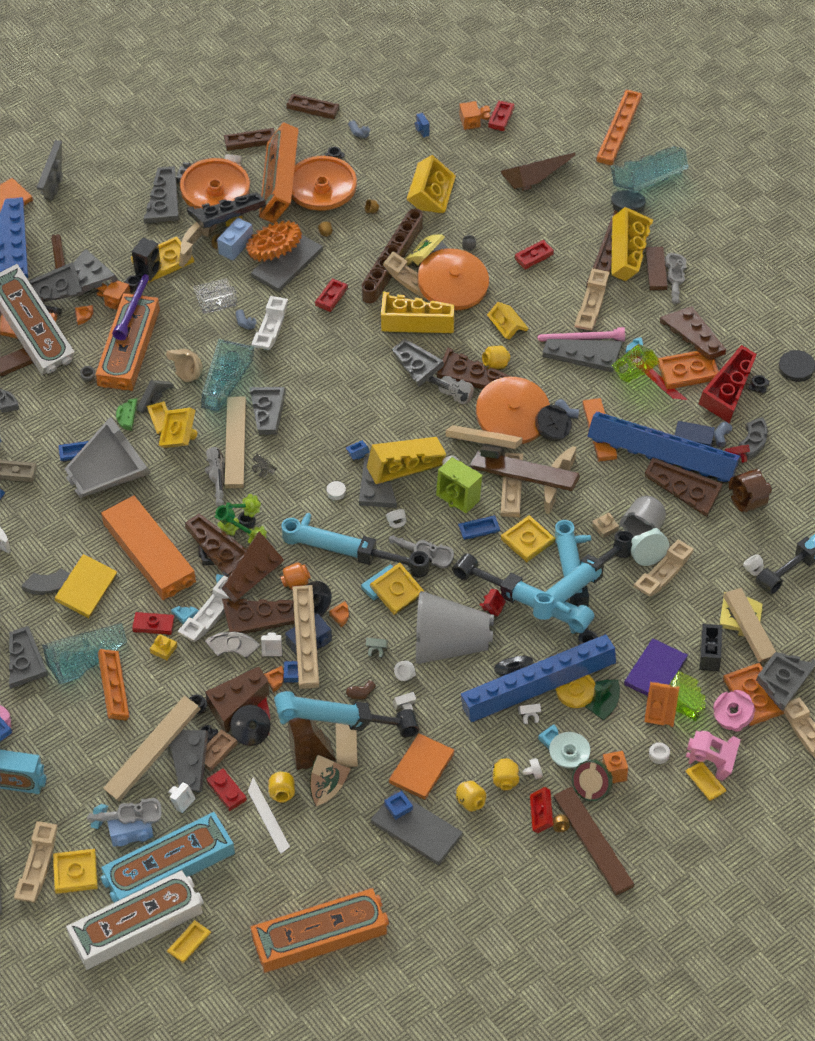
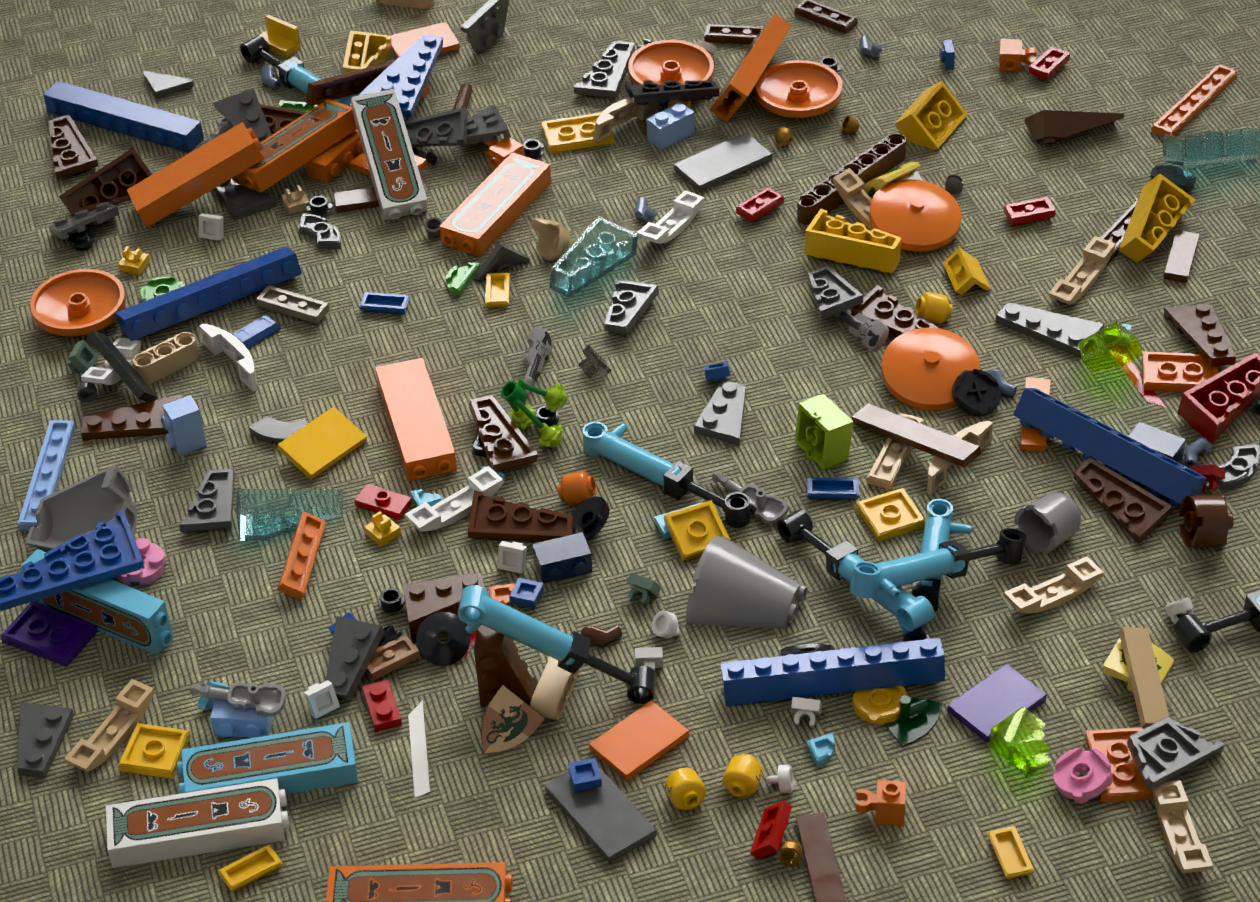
camera: 20 degrees right, 10 degrees down
(83, 314) = (461, 168): orange tile -> none
(105, 462) = (407, 316): light grey cone -> none
(121, 330) = (489, 186): dark purple piece -> none
(146, 258) = (553, 121): black brick -> none
(151, 748) = (308, 632): tan tile -> none
(177, 428) = (508, 300): yellow tile -> none
(215, 296) = (620, 179): clear bracket -> none
(232, 642) = (467, 543): tile -> none
(235, 442) = (573, 333): tan tile -> none
(253, 566) = (526, 465): reddish brown wing -> none
(274, 241) = (714, 135): orange gear -> none
(281, 786) = (449, 717): yellow head -> none
(305, 637) = (554, 554): tan tile -> none
(336, 490) = (671, 409): white tile -> none
(340, 614) = (615, 544): orange tile -> none
(395, 515) = (732, 450): white tile -> none
(404, 458) = (764, 386): yellow wedge -> none
(483, 437) = (880, 388): tan tile -> none
(491, 451) = (885, 403): black tile -> none
(493, 602) = (813, 574): red tile -> none
(571, 743) = (839, 767): light aqua dish -> none
(592, 780) = (852, 809): tile -> none
(605, 525) = (997, 520): tan tile -> none
(617, 334) = (1100, 315): bright pink piece -> none
(649, 547) = (1043, 555): light aqua tile -> none
(659, 753) = (961, 803): white tile -> none
(661, 704) = (984, 741): orange plate -> none
(676, 266) = (1204, 267): light grey piece -> none
(710, 647) = (1079, 690): black brick -> none
(723, 760) = (1043, 830): bright pink tile -> none

